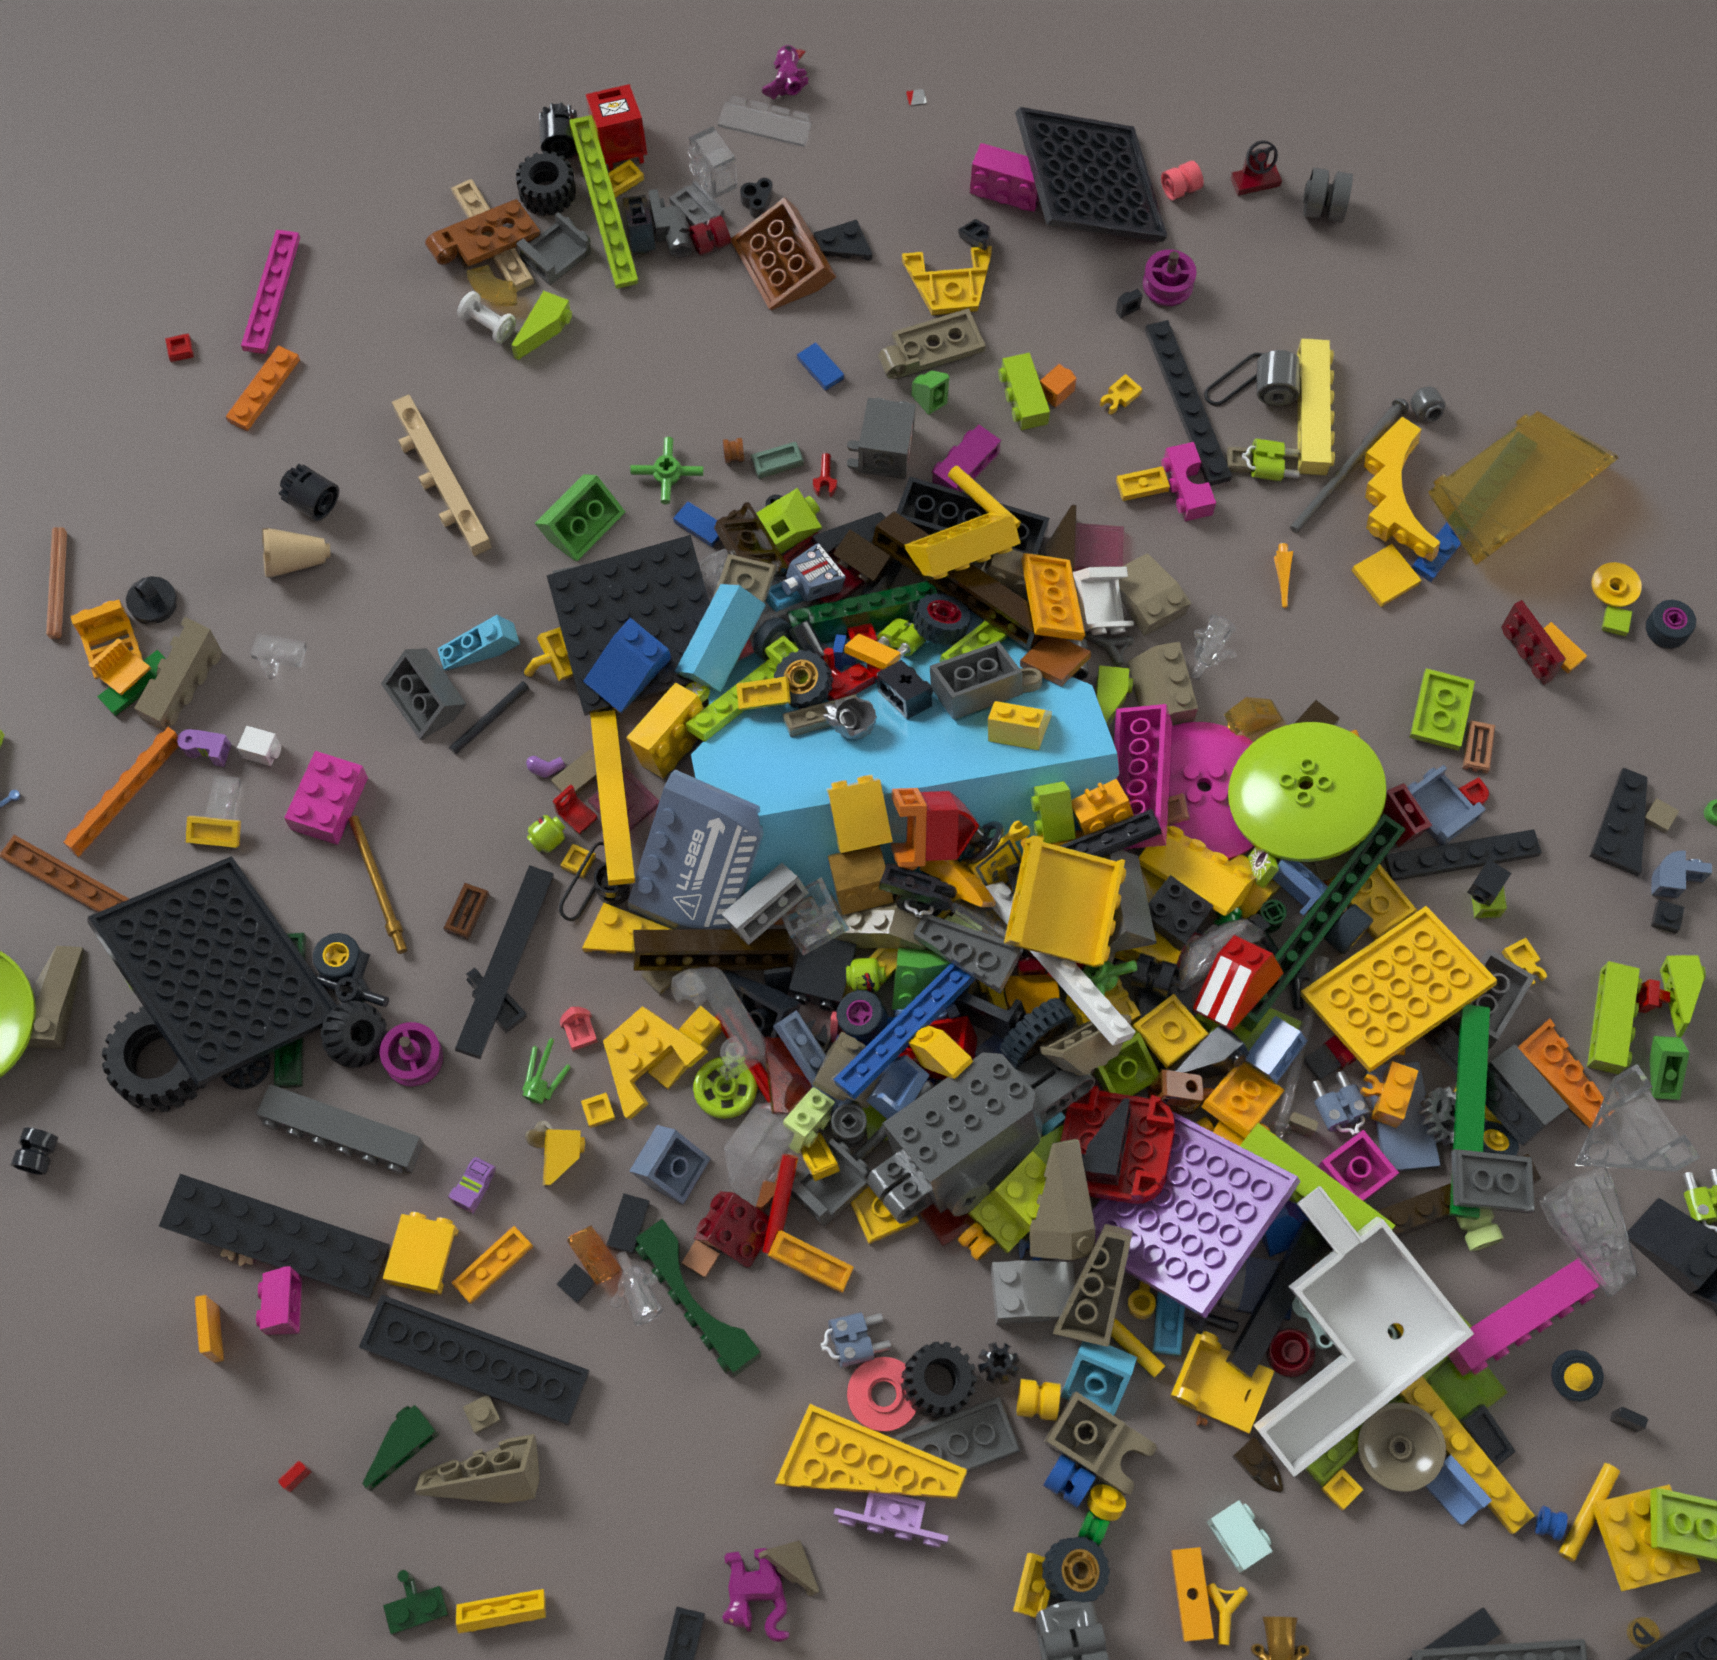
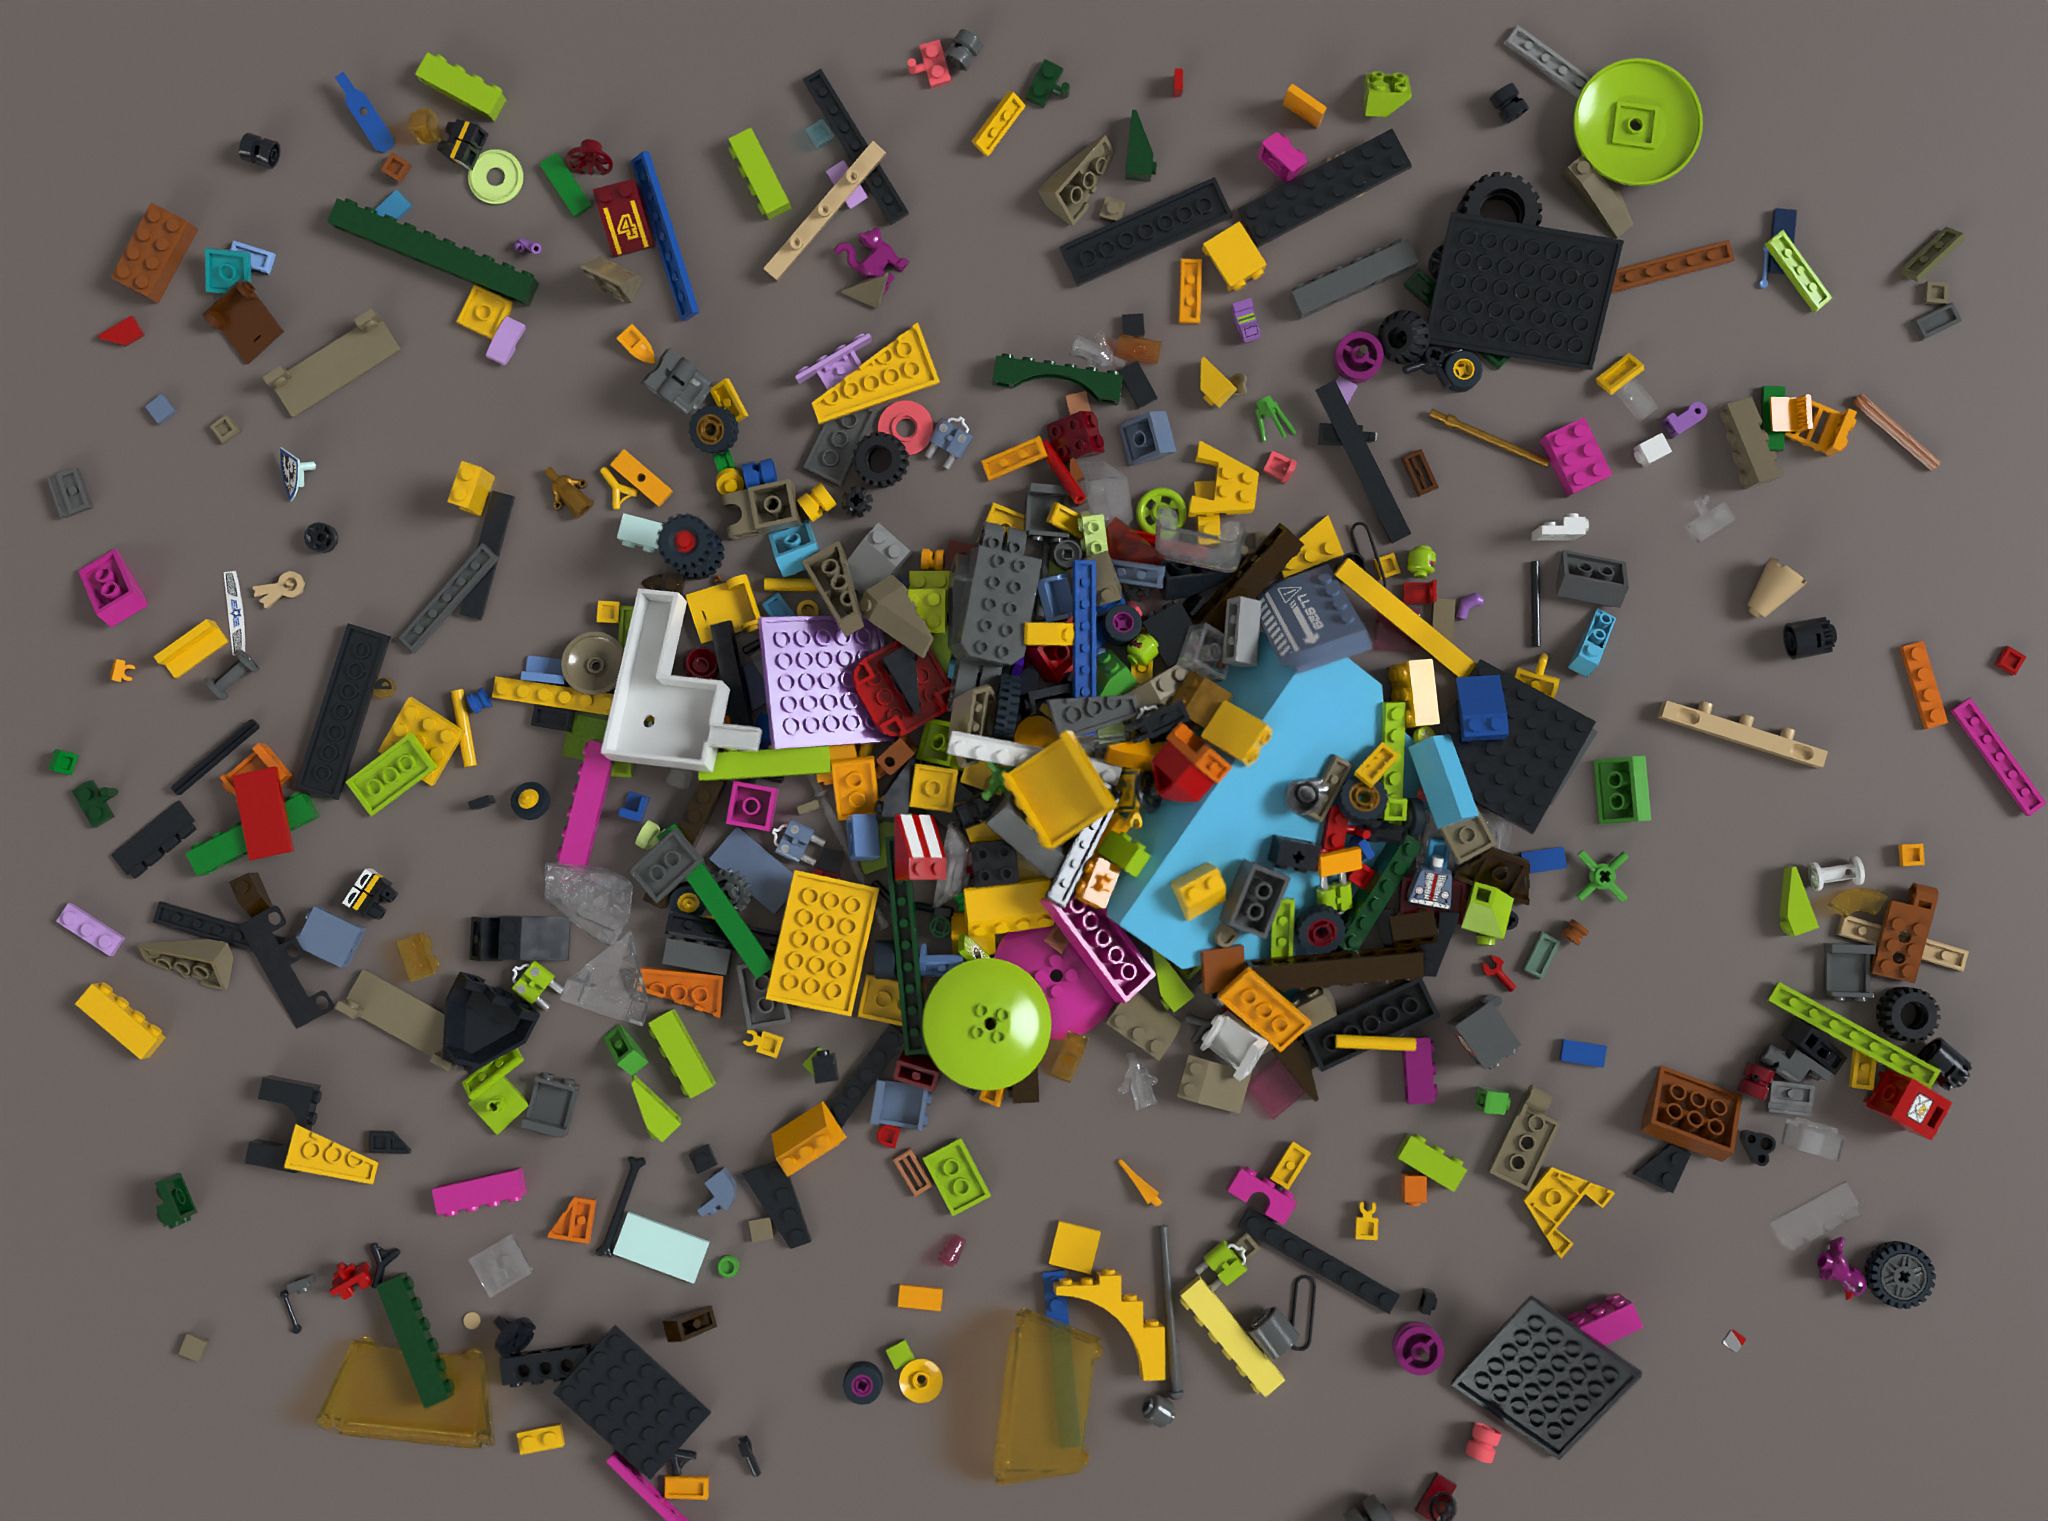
camera: 140 degrees right, 20 degrees up
(124, 790) = (1699, 337): orange plate -> none
(125, 1271) = (1385, 93): none -> lime slope
(151, 600) = (1825, 478): black tile -> none
(404, 748) = (1566, 529): none -> white plate
(415, 283) = (1911, 854): none -> light orange plate
(448, 1042) = (1346, 387): none -> lavender tile
(598, 1110) = (1219, 429): yellow plate -> none
(747, 36) = (1885, 1279): none -> wheel
(964, 544) = (1353, 989): yellow slope -> none
(976, 233) = (1580, 1260): black tile -> none
(1208, 1458) = (690, 546): none -> black plate
(1392, 1093) = (771, 873): light orange brick -> none
(1474, 1277) = (634, 807): none -> blue panel
(1501, 656) = (951, 1252): none -> clear pink cone
(1532, 642) = (938, 1277): dark red plate -> none
(1556, 845) = (806, 1138): none -> light orange slope
(1651, 996) = (671, 1088): red tile -> none

